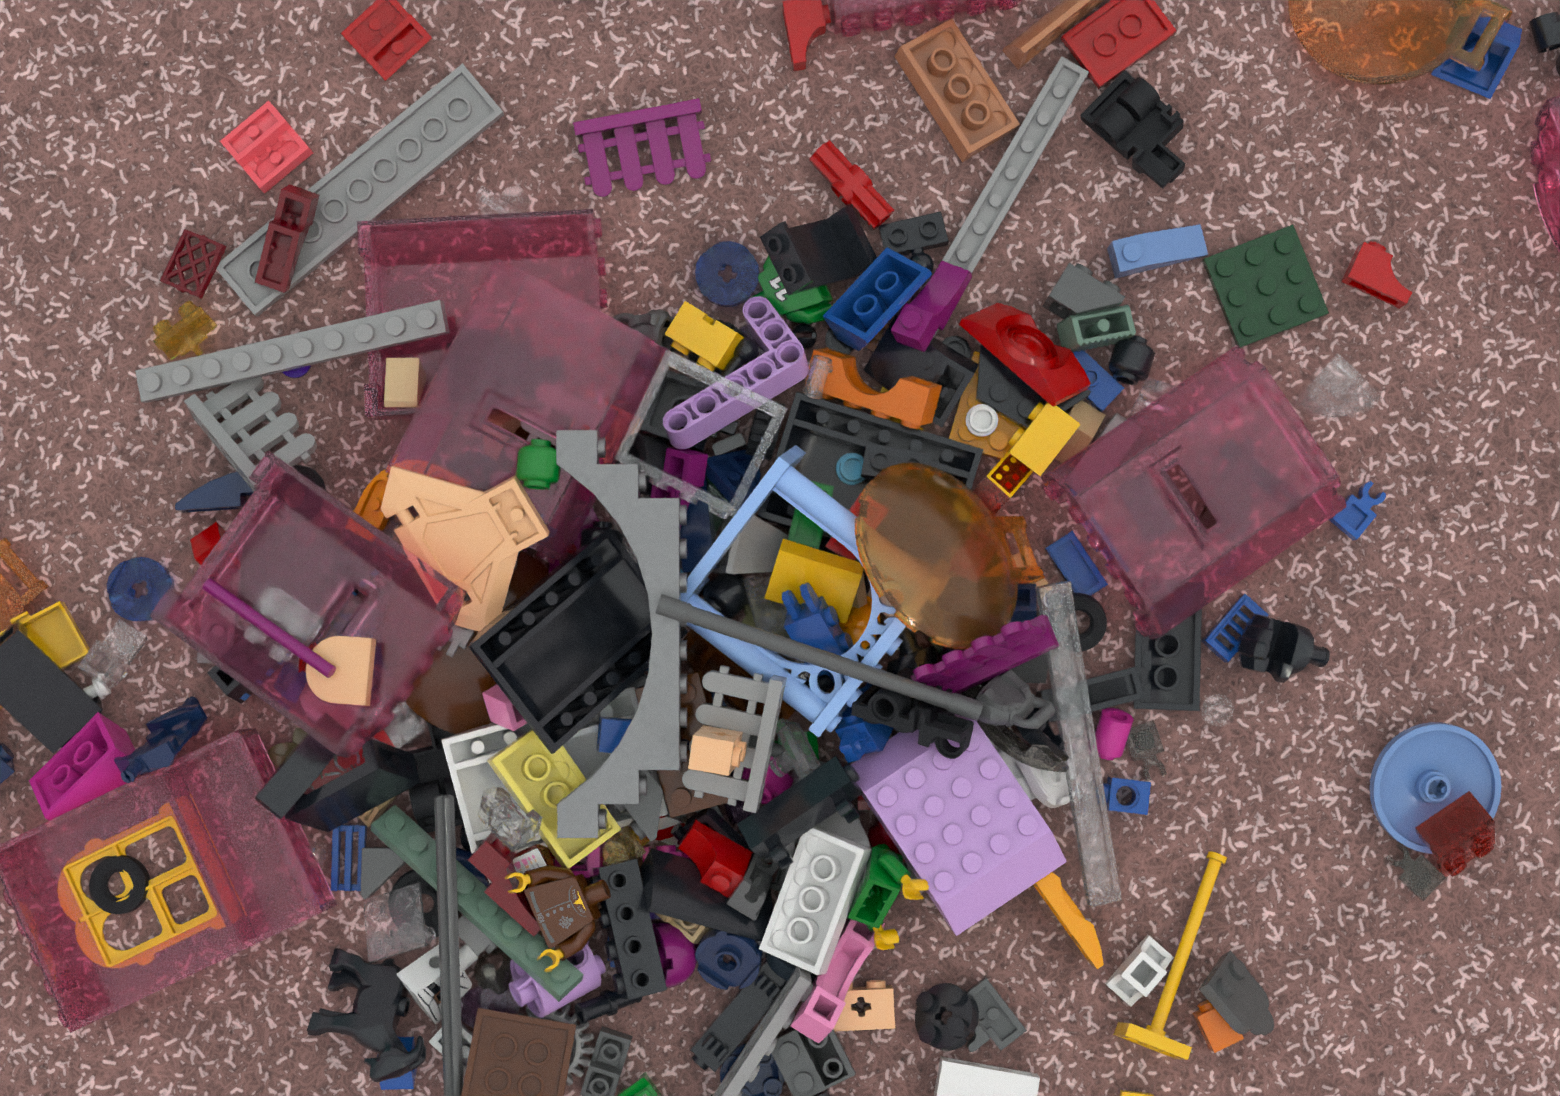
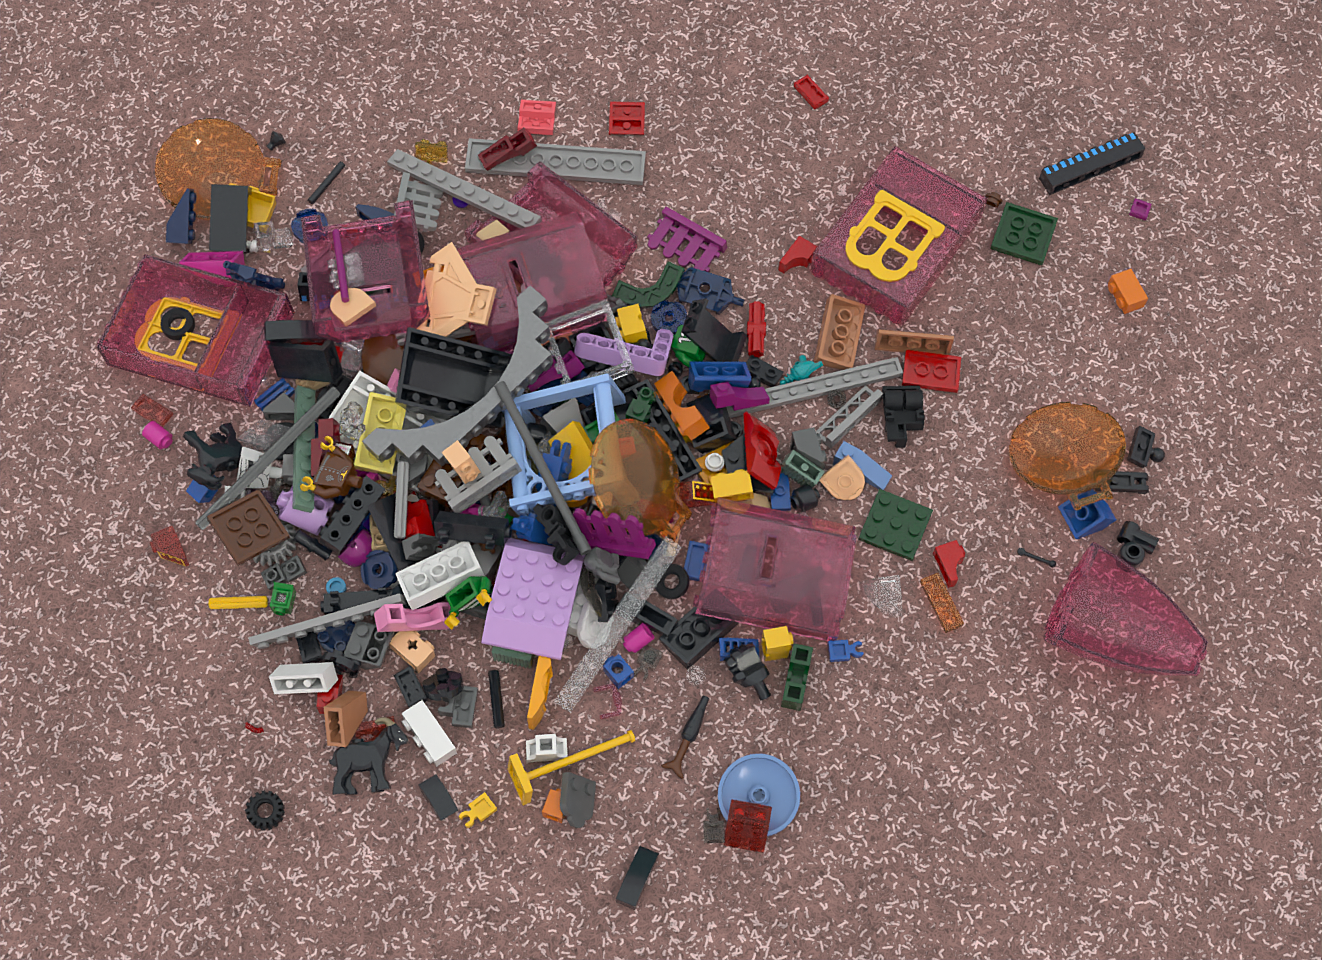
camera: 45 degrees right, 20 degrees down
(93, 507) = (327, 181): none -> black bar
(210, 268) = (458, 138): dark red window -> none
(216, 1026) = (151, 410): none -> clear red tile
(263, 1052) = (157, 435): none -> dark pink brick
(537, 465) = (507, 294): green head -> none
(676, 857) = (401, 500): none -> light grey axle
(679, 264) = (652, 295): none -> dark green plate
(687, 1020) = (336, 584): none -> dark azure tile
(716, 211) = (720, 291): none -> dark blue plate
(819, 369) = (662, 380): clear pin -> none
(838, 449) = (640, 408): none -> dark green brick
(907, 1054) = (410, 686): none -> black plate
(961, 188) = (801, 370): none -> teal piece
(1017, 967) = (496, 699): none -> black axle
(1044, 192) = (831, 400): none -> clear smoke plate
(1088, 194) = (852, 419): none -> light grey fence
(1156, 829) = (616, 698): none -> clear pink piece
(1157, 289) = (844, 479): none -> light nougat tile
(1281, 584) = (776, 643): none -> yellow brick
(1282, 790) = (688, 735): none -> piece
(1349, 616) = (797, 677): none -> dark green arch
(1389, 1016) = (636, 877): none -> black slope
(1413, 337) = (941, 602): none -> clear orange plate
(1442, 177) = (1021, 551): none -> black hinge

